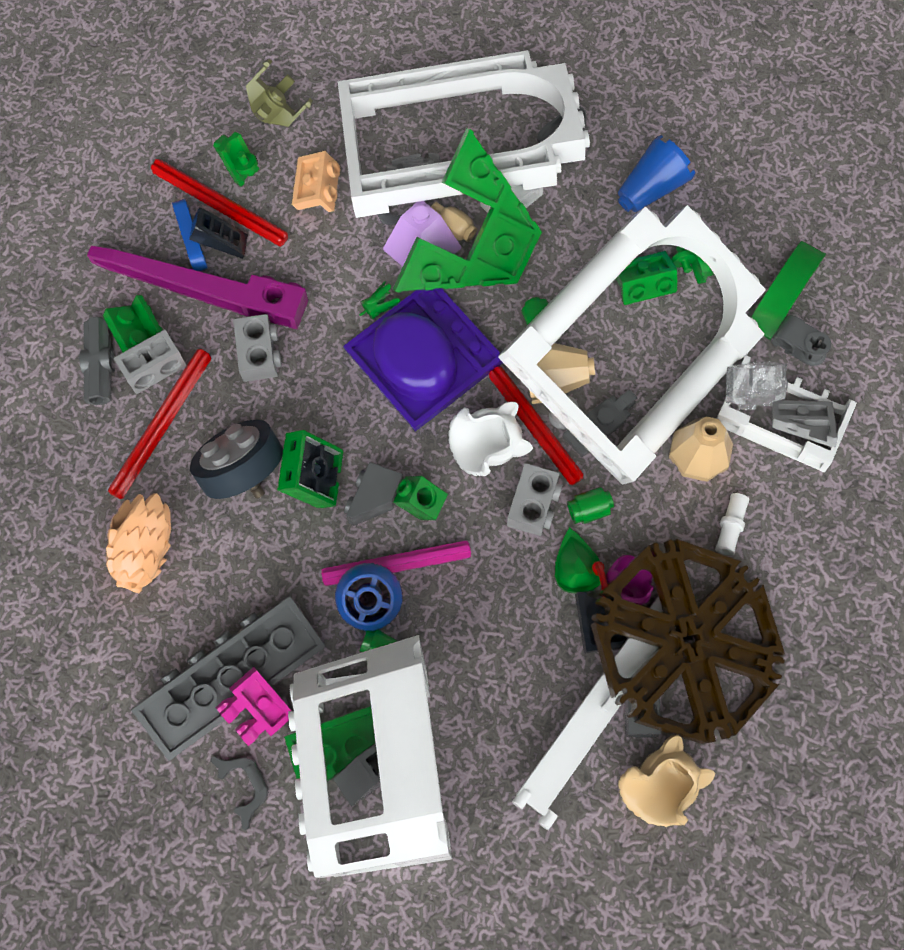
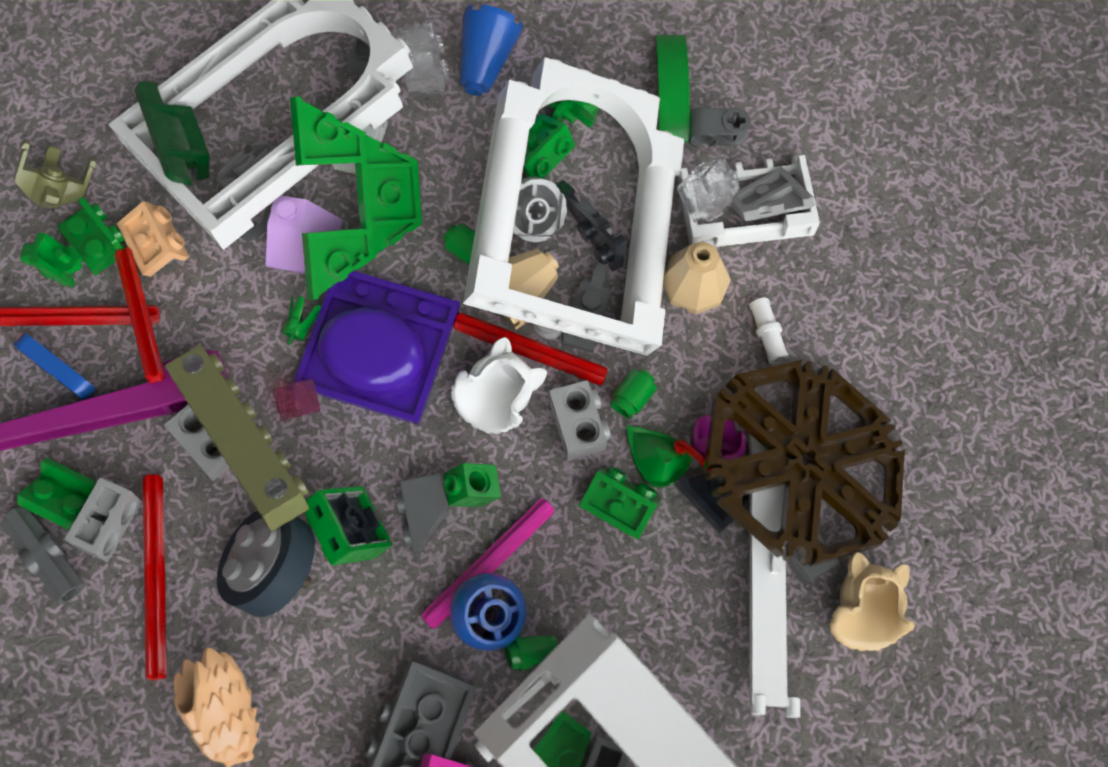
camera: 40 degrees left, 0 degrees up
(203, 231) = (68, 352): black slope -> none
(268, 232) = (139, 316): none -> red axle
(271, 357) = (238, 438): none -> olive piece
(275, 158) = (92, 237): none -> green bracket
(339, 359) = (296, 399): none -> clear pink slope
(375, 114) = (174, 135): none -> dark green plate
(457, 221) = (323, 195): tan plant -> none
(525, 580) = (620, 501): none -> green bracket
(600, 159) = (427, 71): none -> clear brick
(608, 321) = (539, 209): none -> light grey cylinder
(645, 361) = (596, 228): none -> black wing

